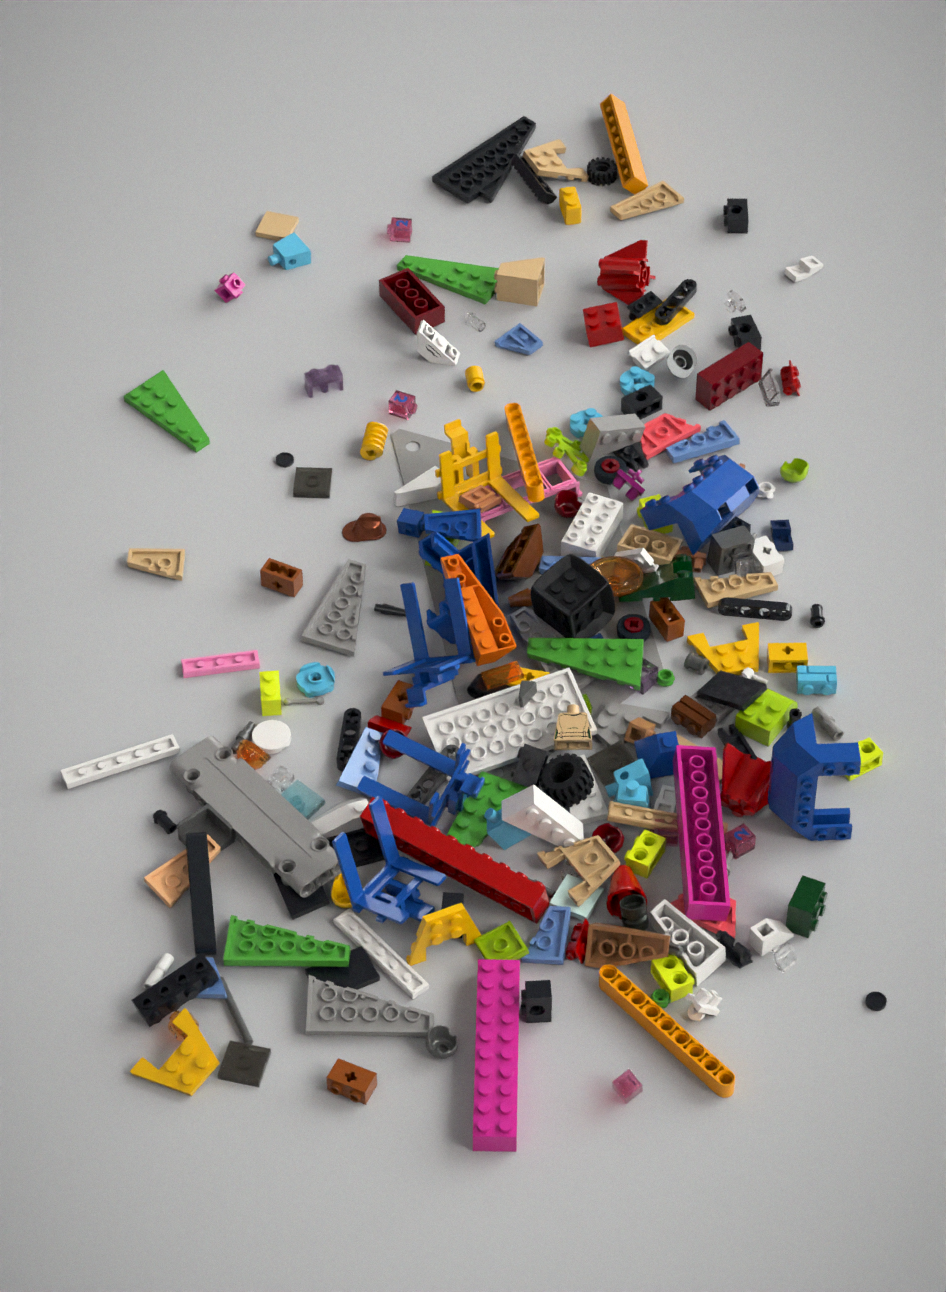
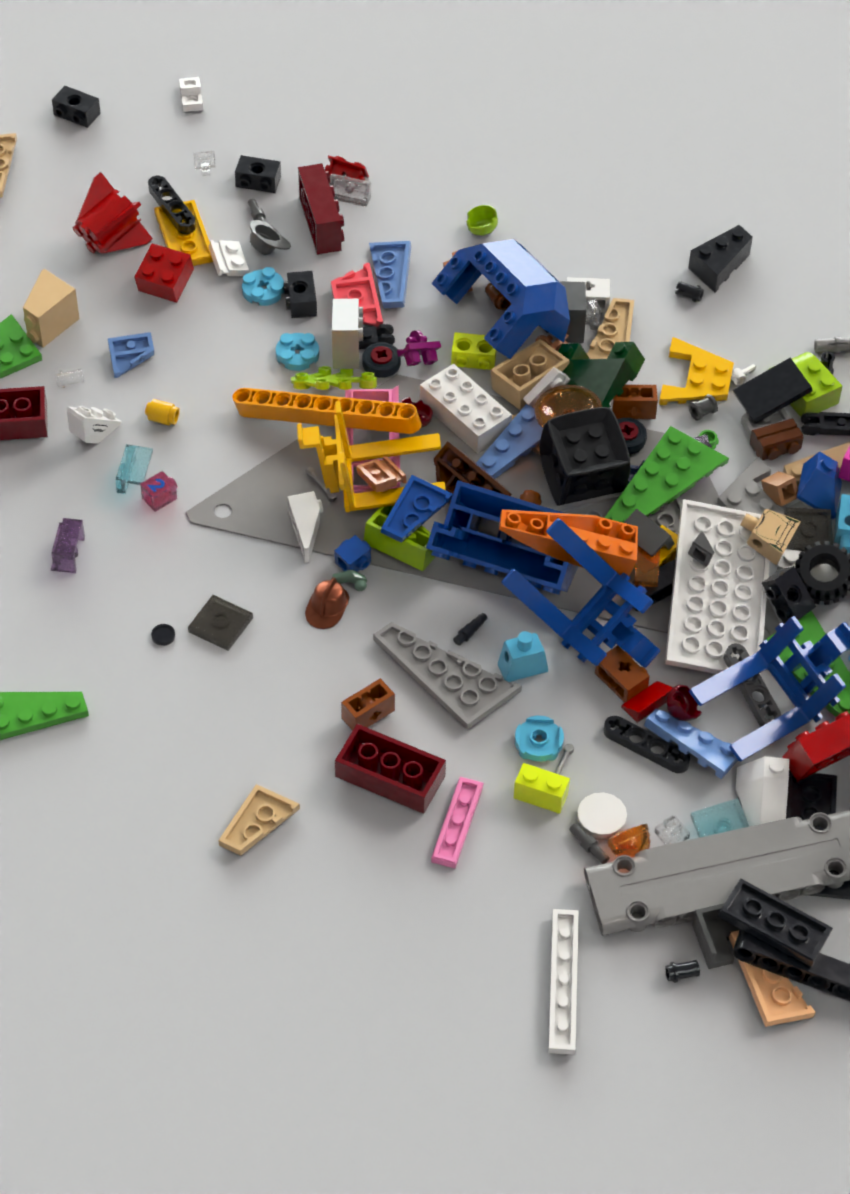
camera: 65 degrees left, 5 degrees up
(218, 846) = (775, 922): none -> black tile
(236, 608) = (390, 768): none -> dark red brick
(373, 441) = (199, 538): yellow piece -> none
(378, 643) = (522, 657): none -> medium azure torso
(393, 528) = (359, 580): none -> sand green arm
(411, 381) = (133, 467): none -> clear light blue panel
(527, 661) = (650, 535): none -> dark grey panel
(643, 305) = (157, 229): black hinge -> none
(707, 351) = (257, 213): none -> dark grey bar
(754, 611) = (657, 328): black beam -> none
(781, 535) = (560, 270): dark blue slope -> none
(786, 657) = (735, 335): yellow brick -> none
(816, 680) = (778, 327): medium azure brick -> none
(867, 619) = (720, 256): none -> black wedge

